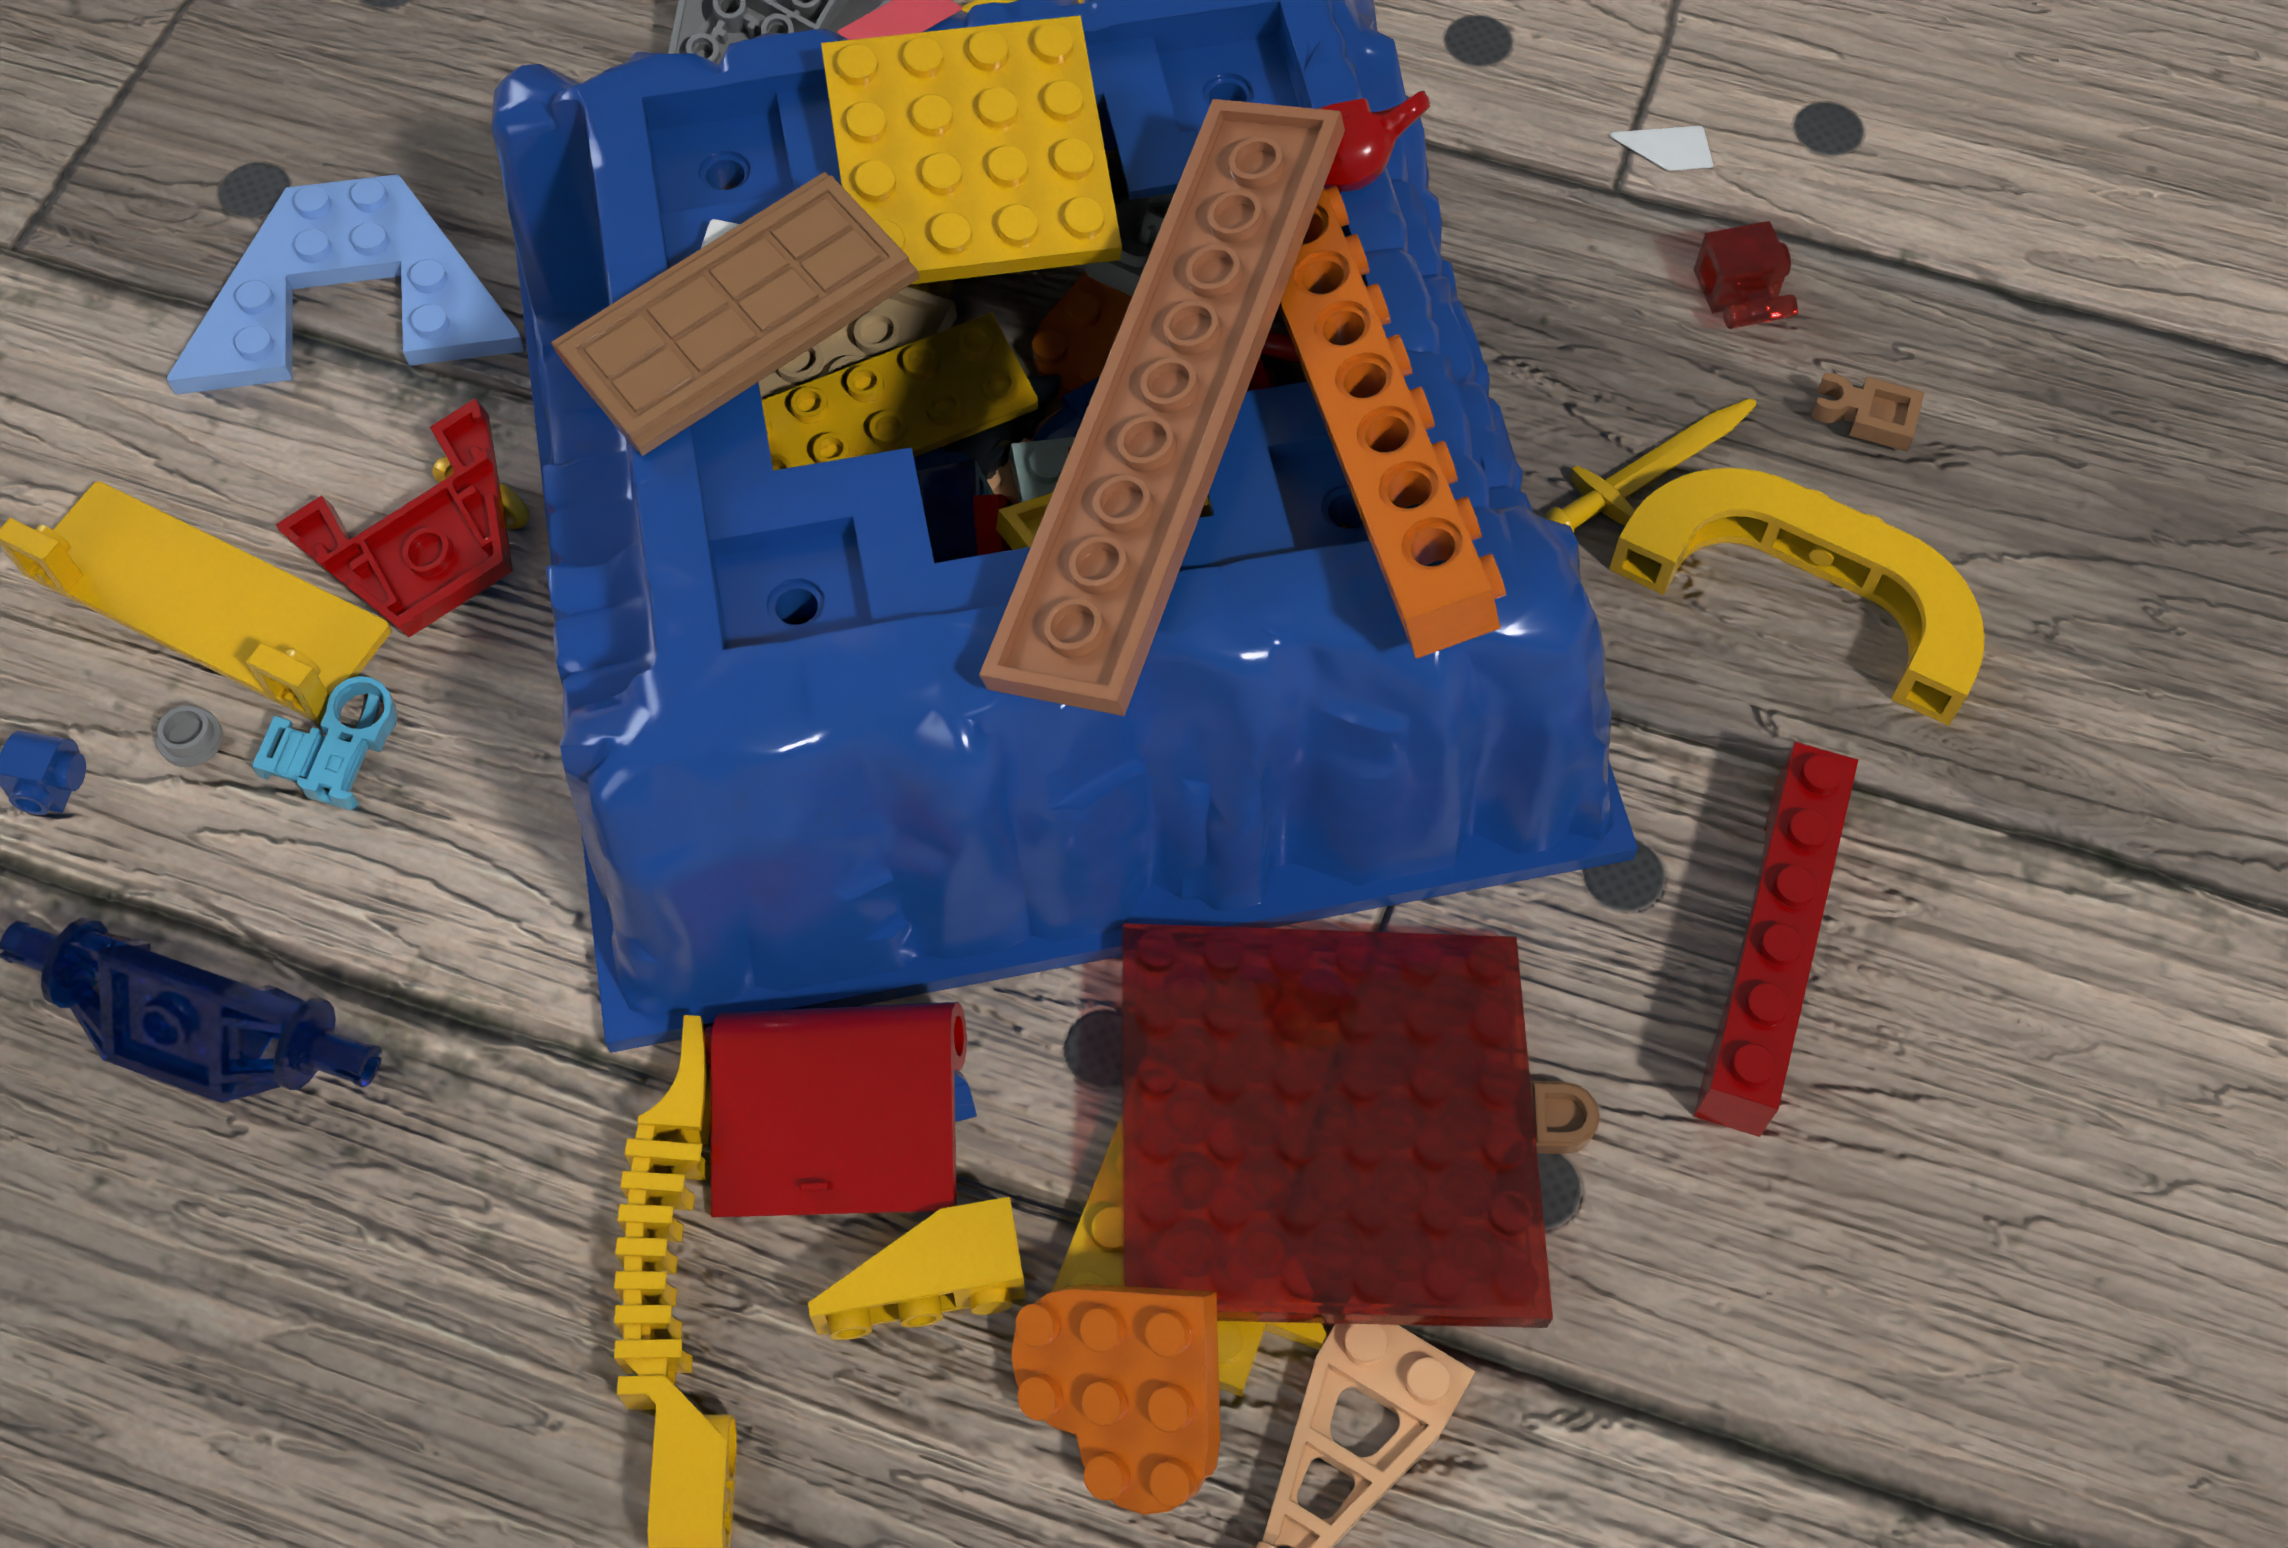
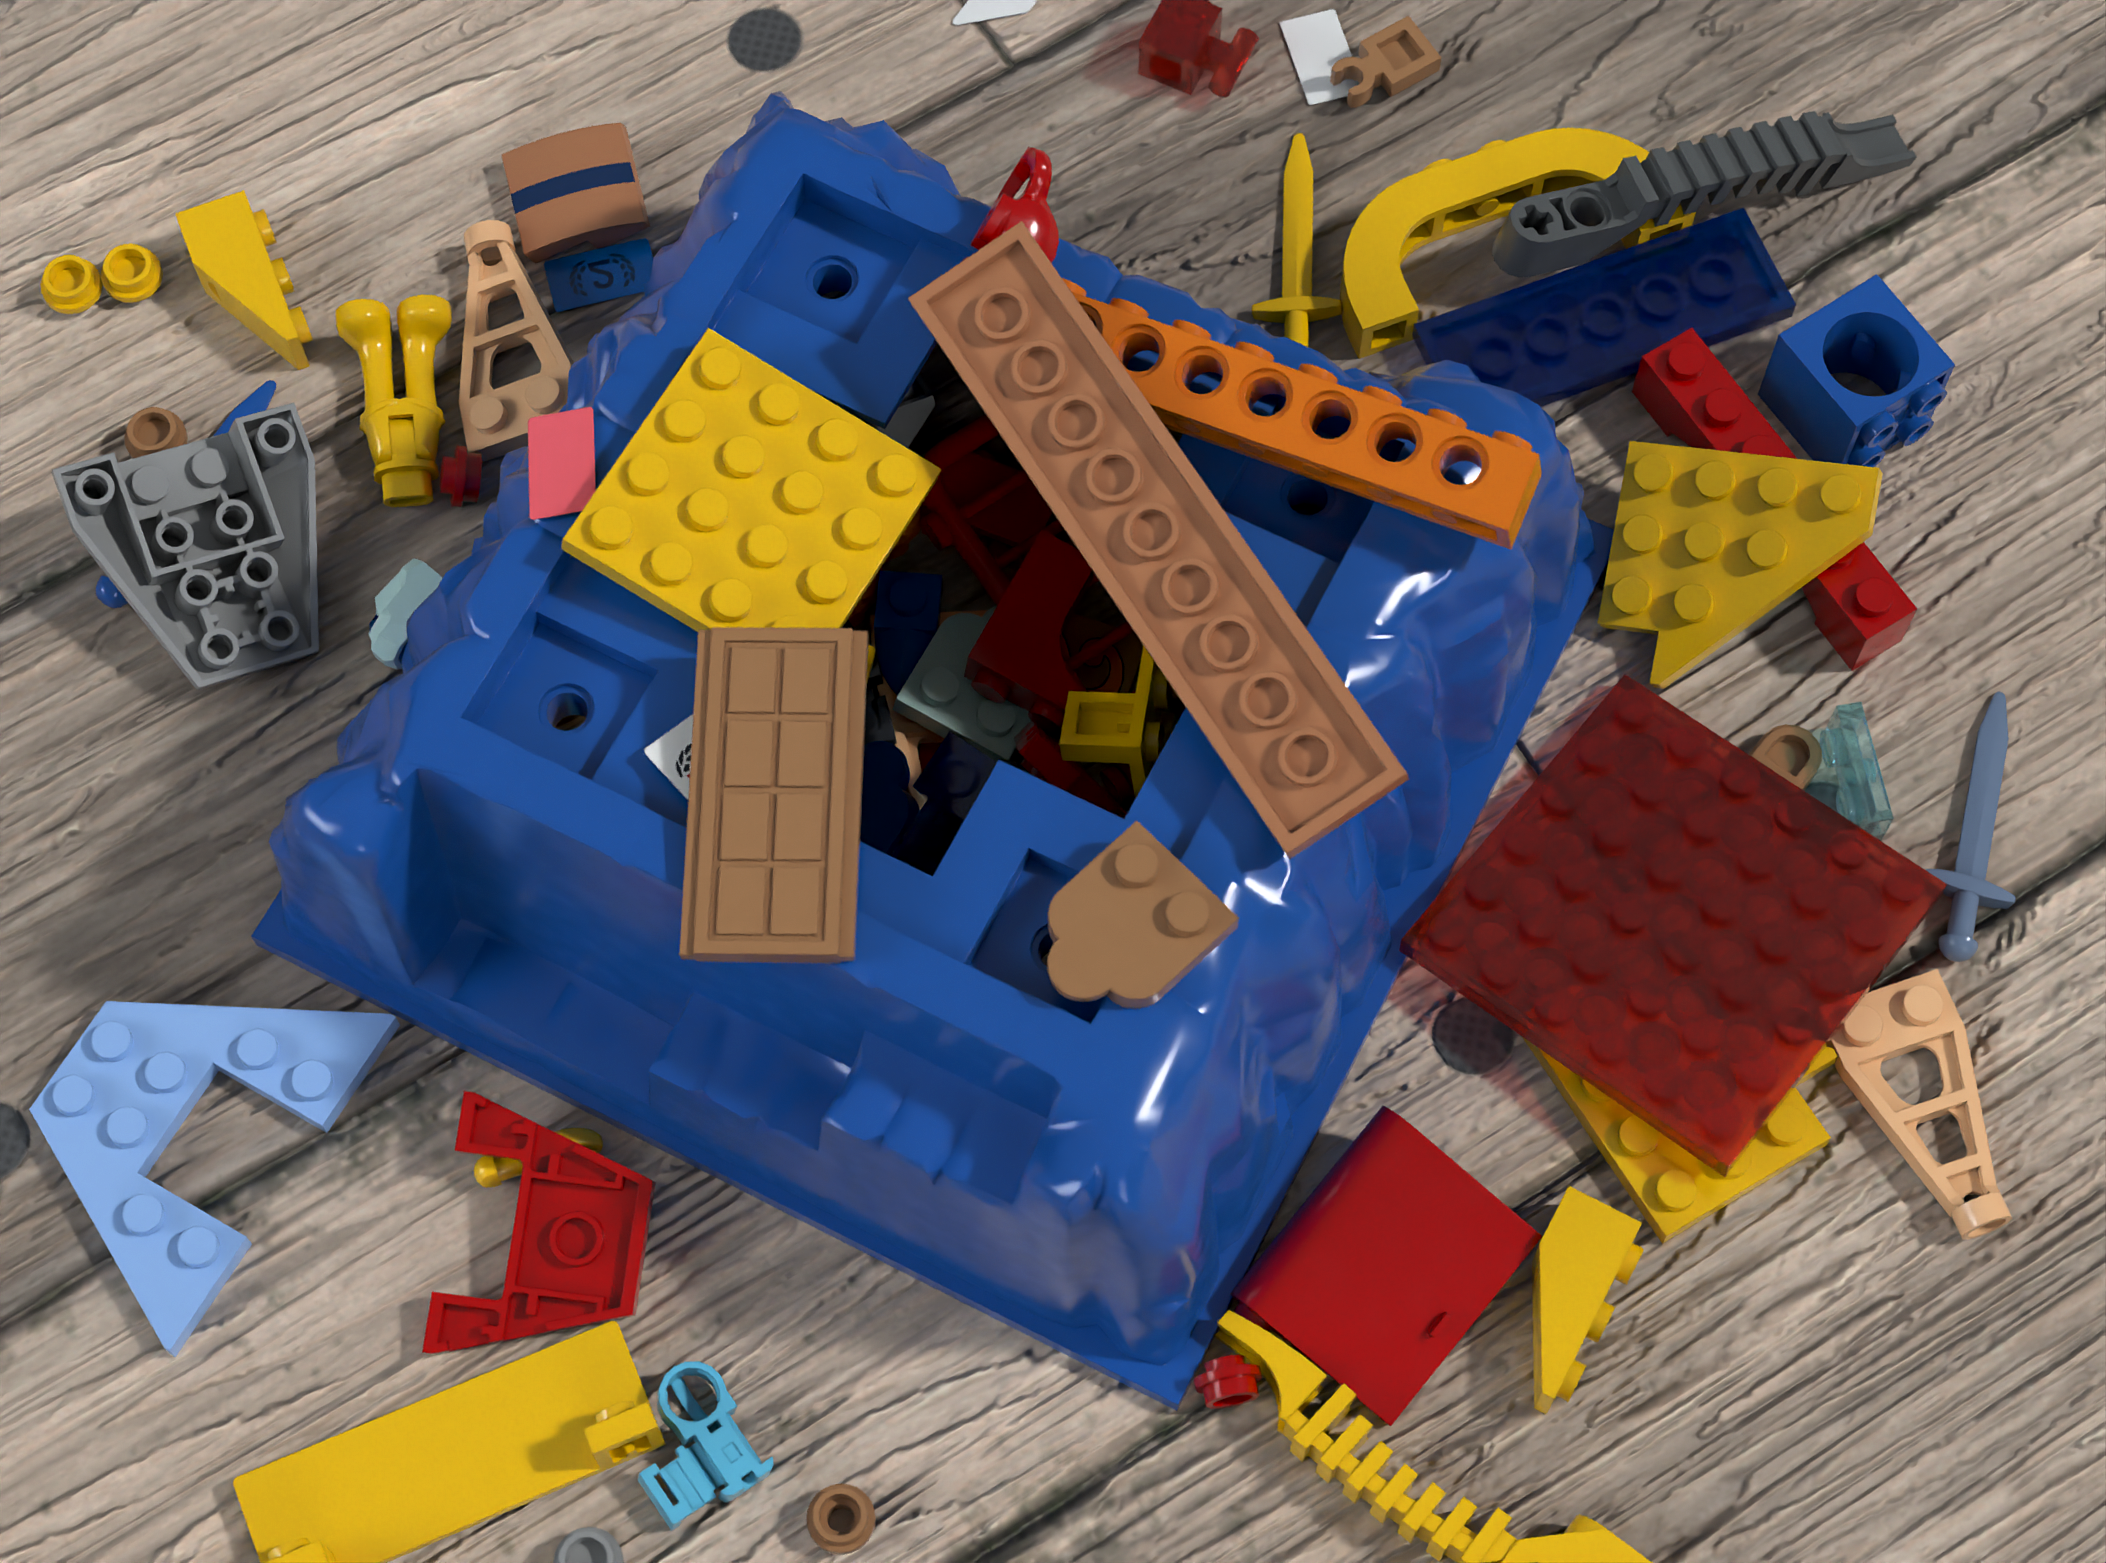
camera: 50 degrees left, 5 degrees up
(331, 863) = (835, 1498): none -> medium nougat plate
(649, 1064) = (1228, 1382): none -> red plate
(828, 614) = (1132, 924): none -> medium nougat plate
(1132, 1383) = (1776, 1208): orange plate -> none
(1582, 1344) = (1967, 882): none -> sand blue sword
(1608, 1154) = (1850, 750): none -> clear light blue plate
(1692, 917) = (1723, 540): none -> yellow wing
(1785, 689) = (1610, 312): none -> clear blue plate
(1836, 354) = (1315, 46): none -> white sticker
(1871, 619) = (1581, 221): none -> dark grey piece
(1971, 878) = (1861, 335): none -> blue brick

